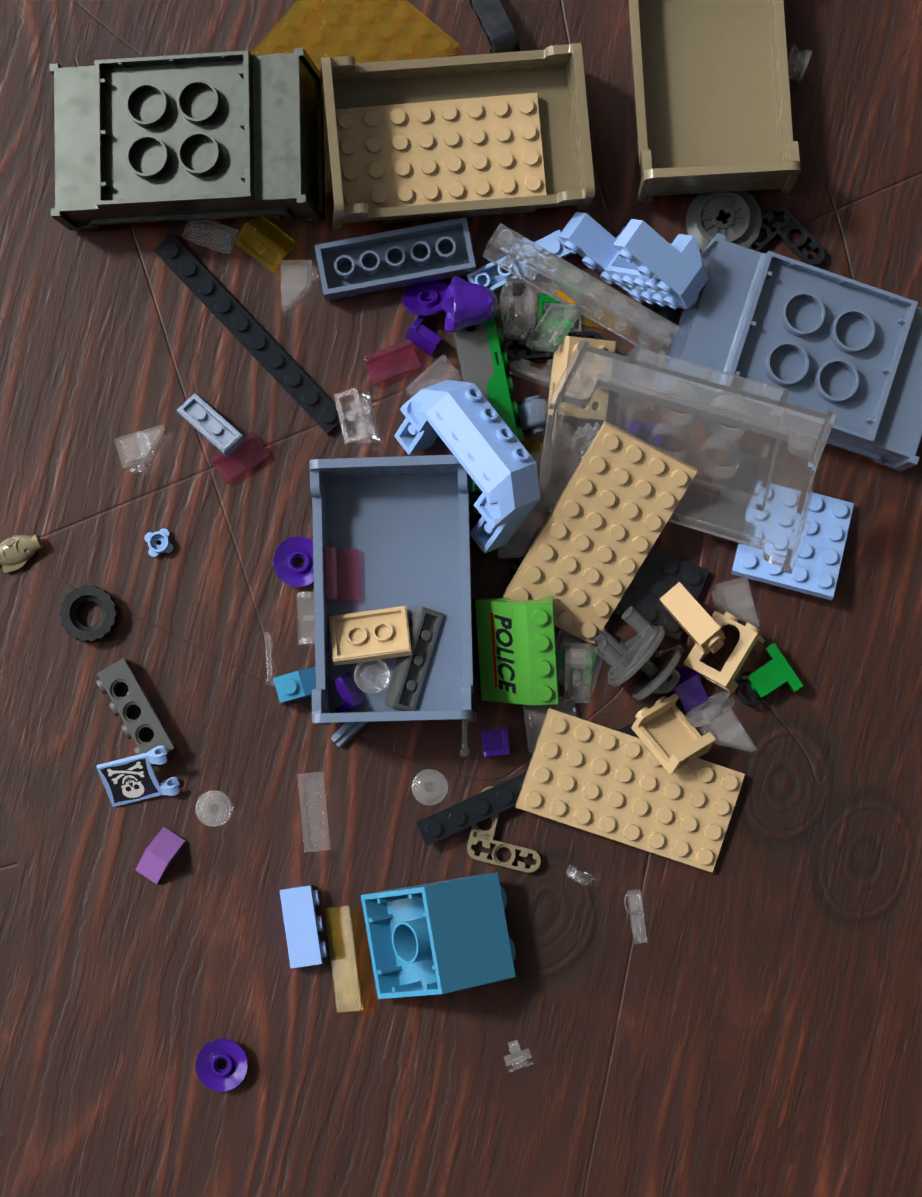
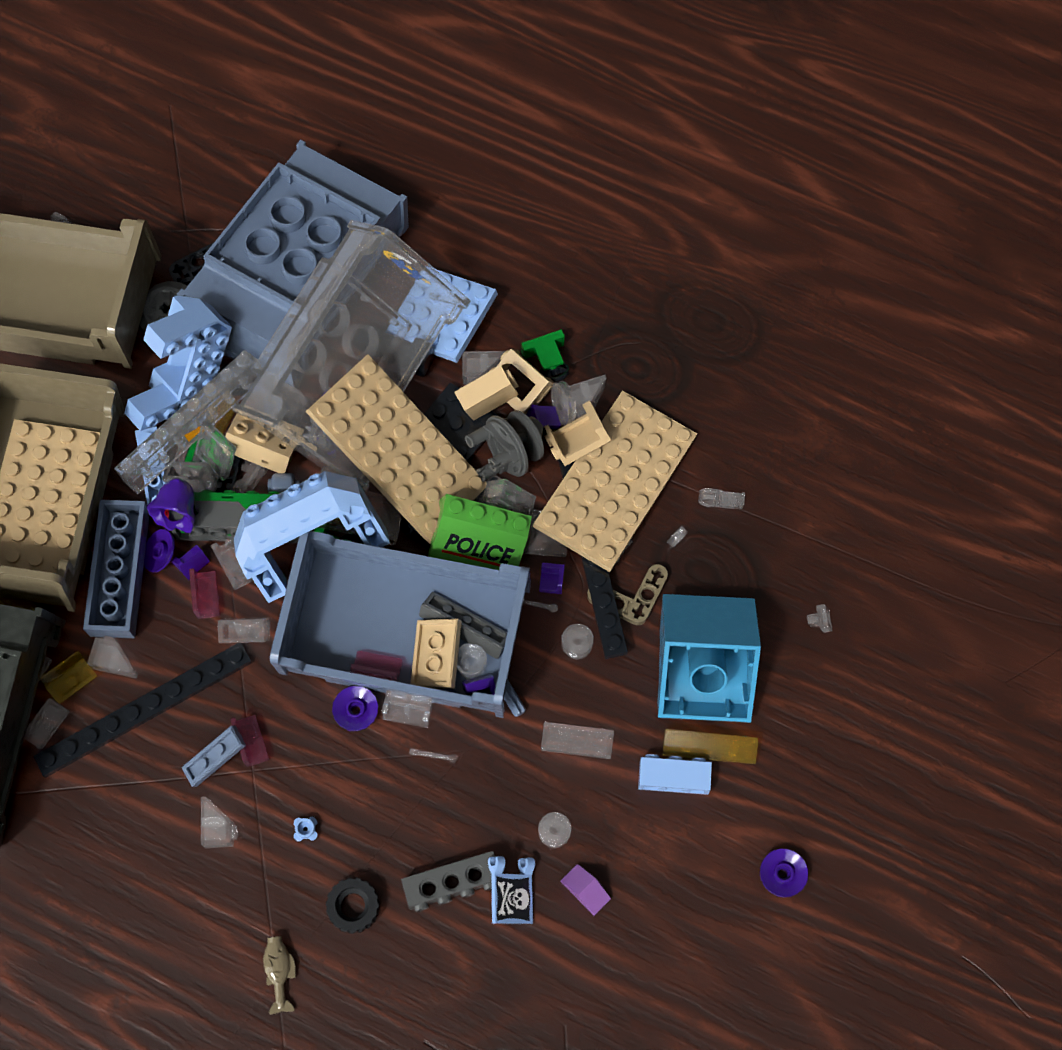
camera: 80 degrees left, 15 degrees down
(295, 685) = (463, 730): dark azure slope -> none

